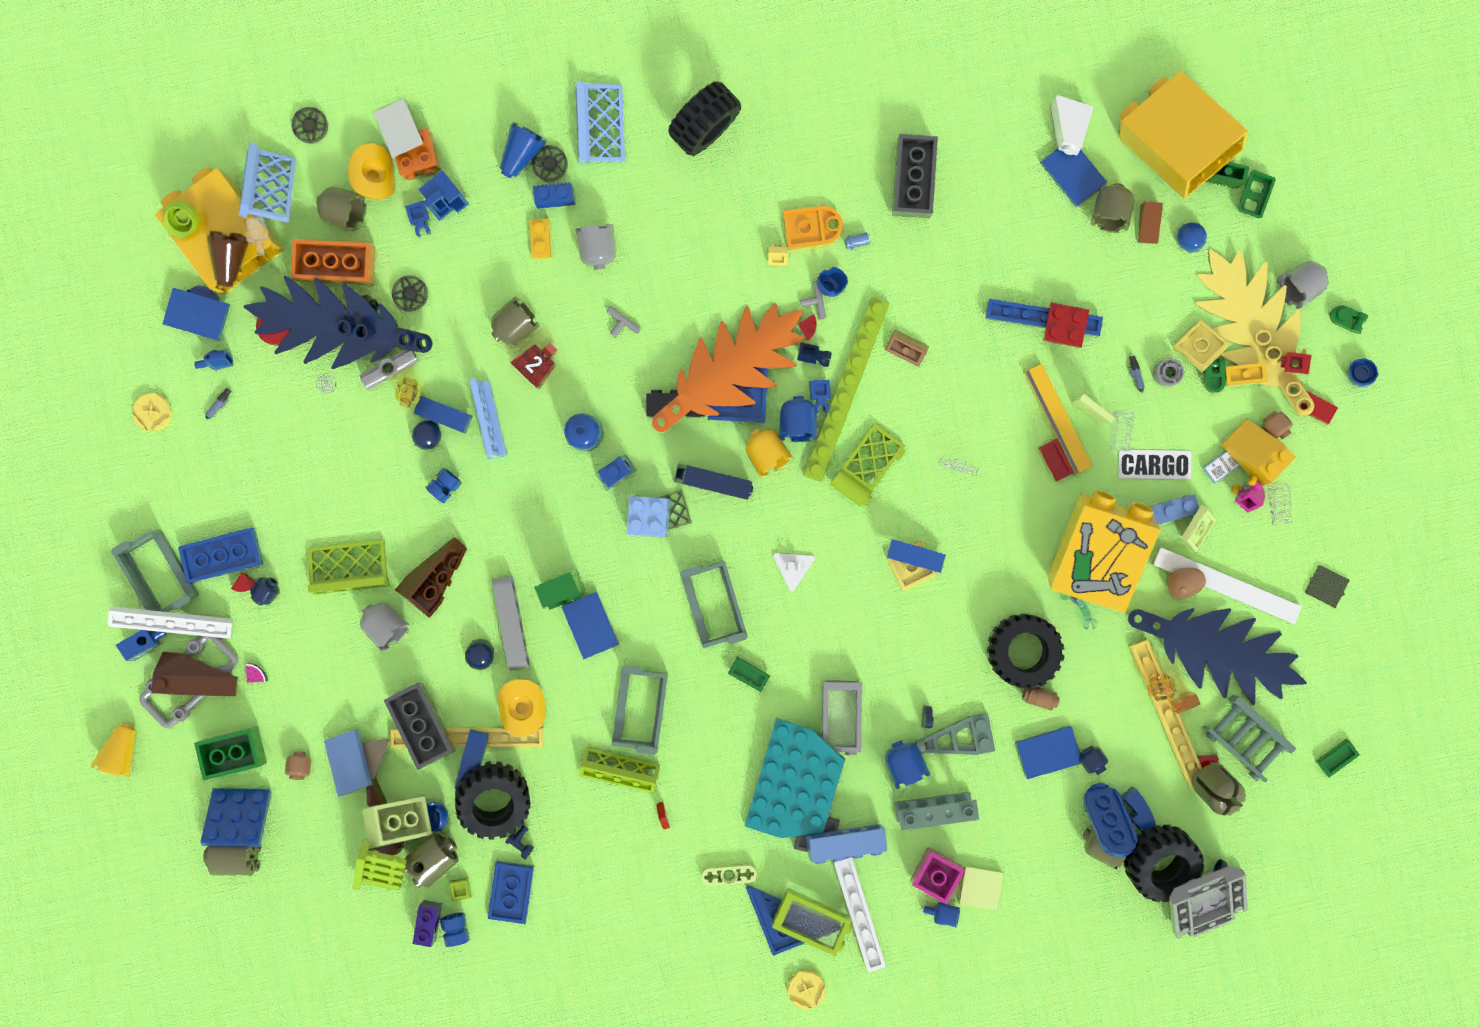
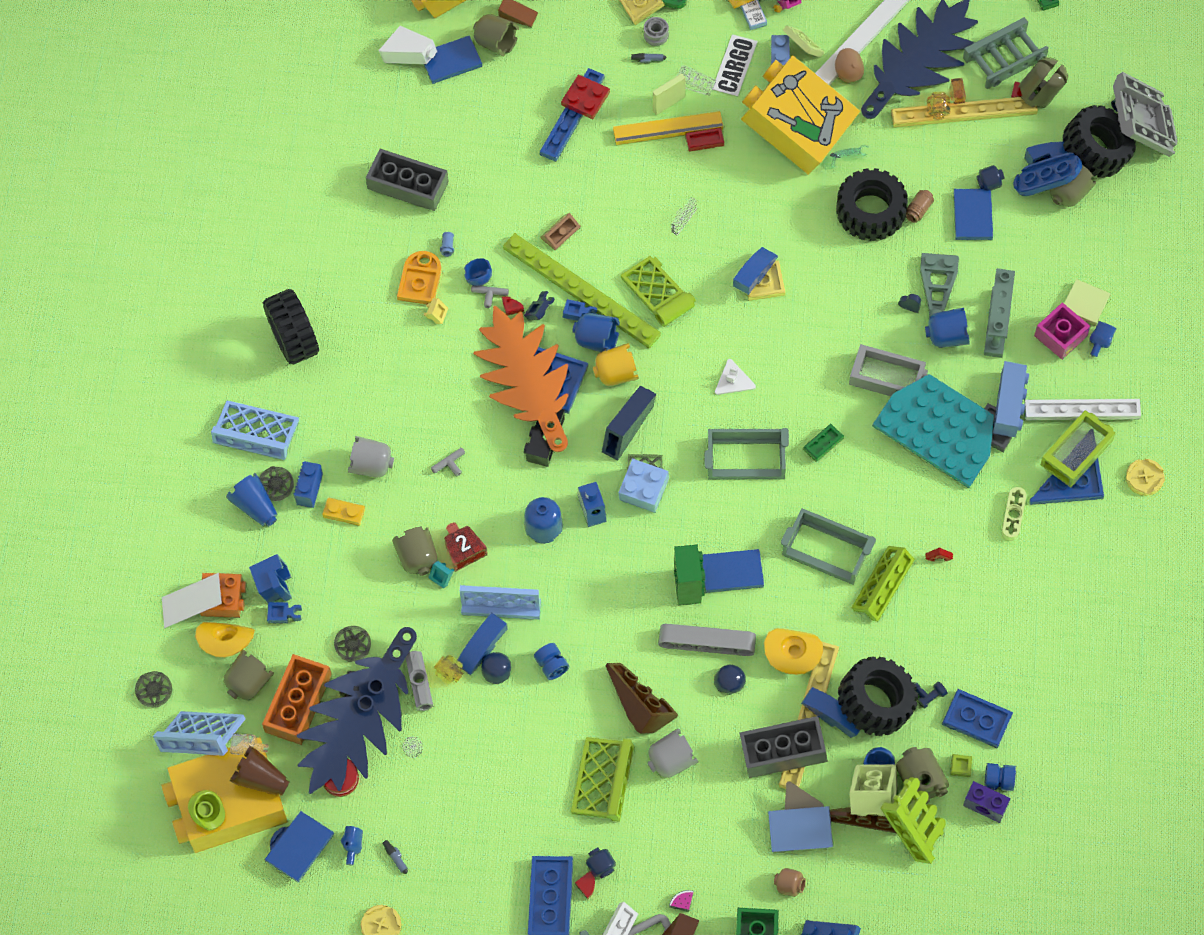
camera: 65 degrees left, 25 degrees down
(500, 353) = (440, 574): none -> teal tile

